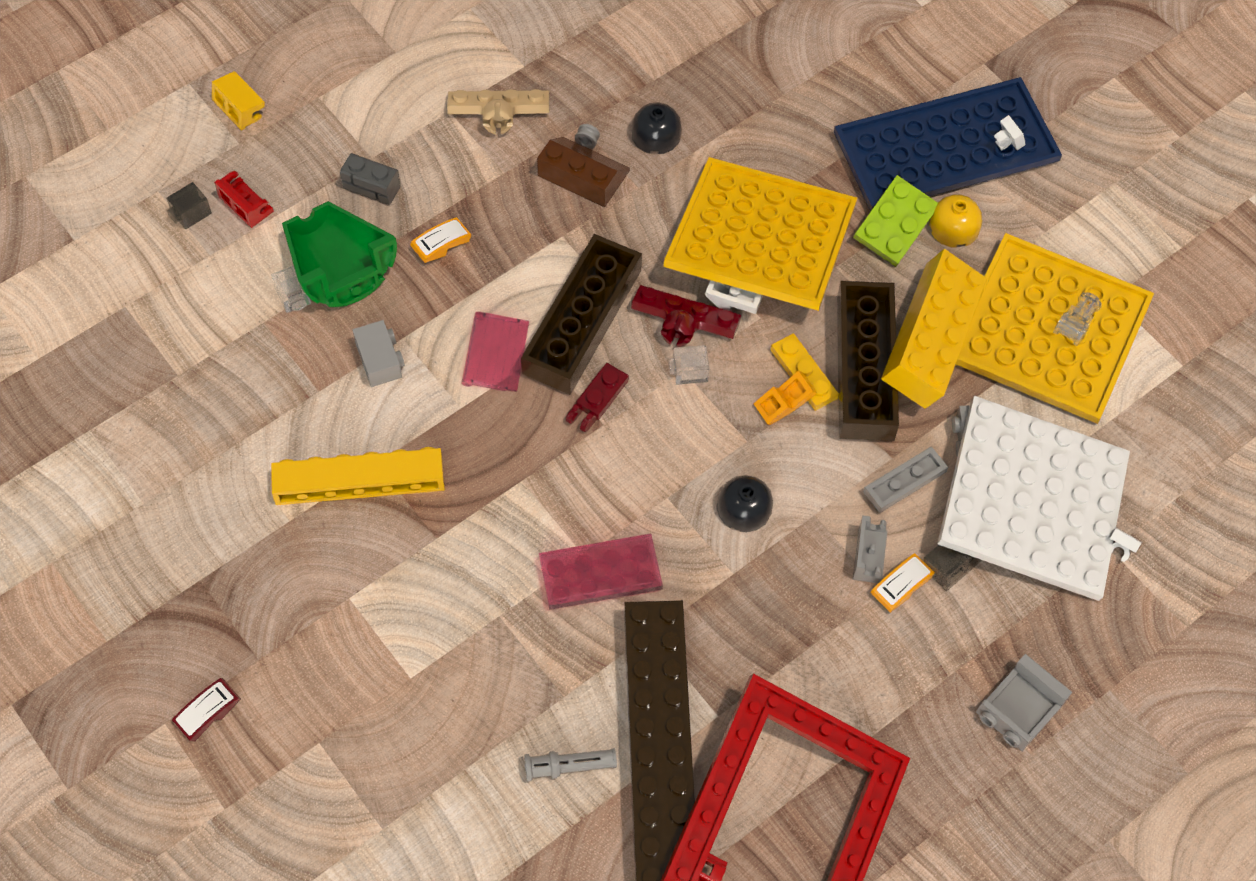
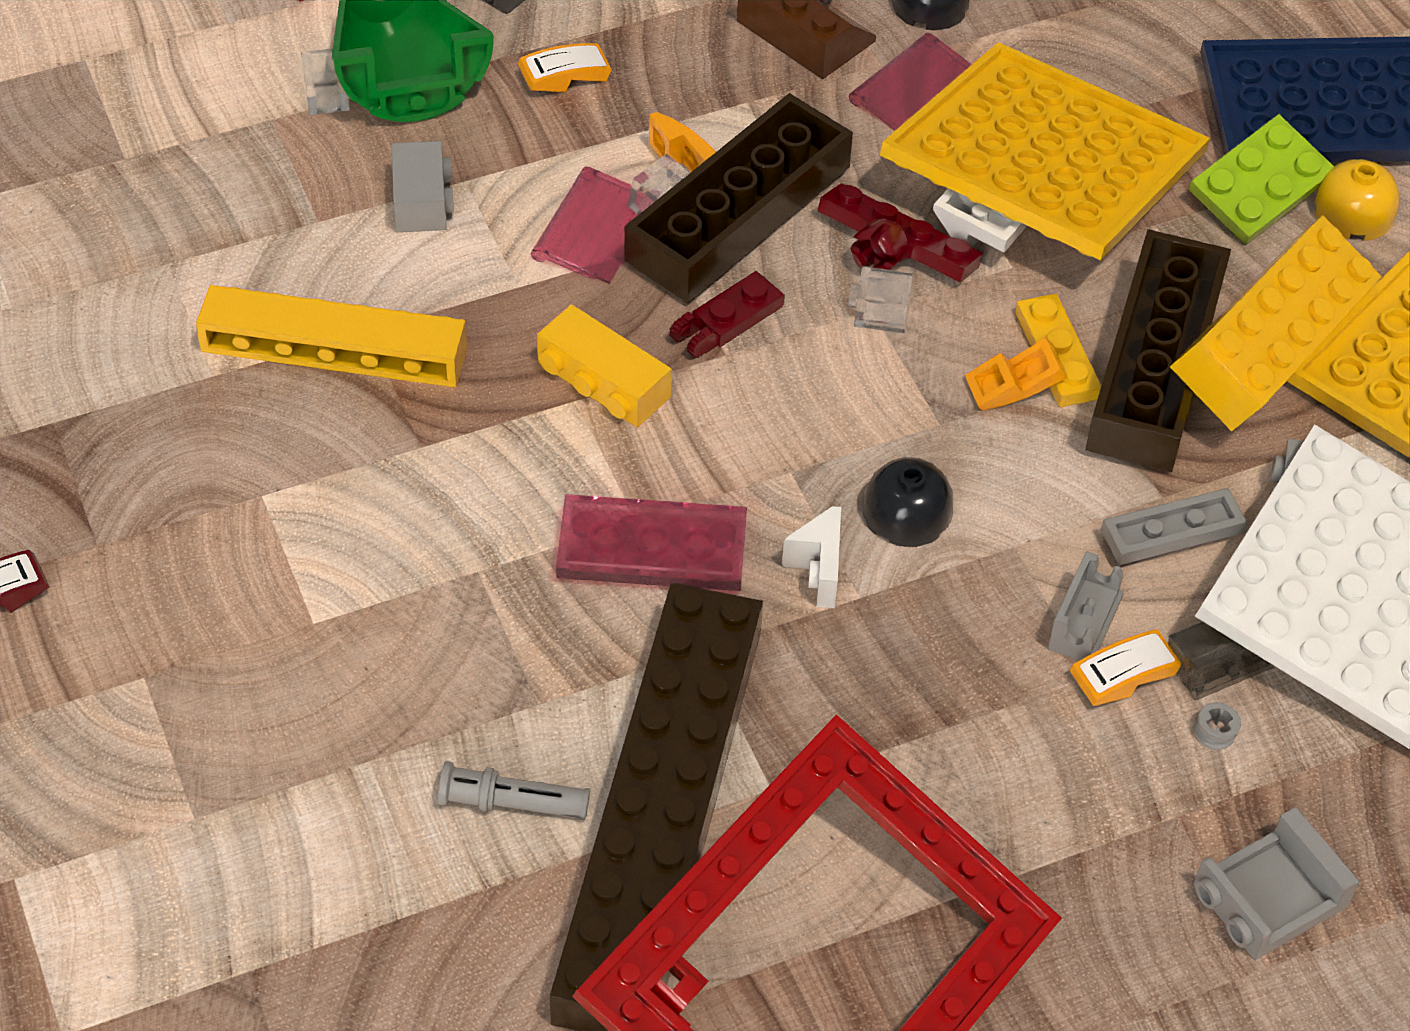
camera: 15 degrees right, 10 degrees down
(530, 318) = (655, 182): none -> clear brick
(531, 281) = (677, 141): none -> light orange slope
(533, 455) = (604, 366): none -> yellow brick
(663, 199) = (909, 80): none -> clear pink piece
(703, 550) = (817, 549): none -> white slope
(964, 615) = (1215, 739): none -> light grey bush

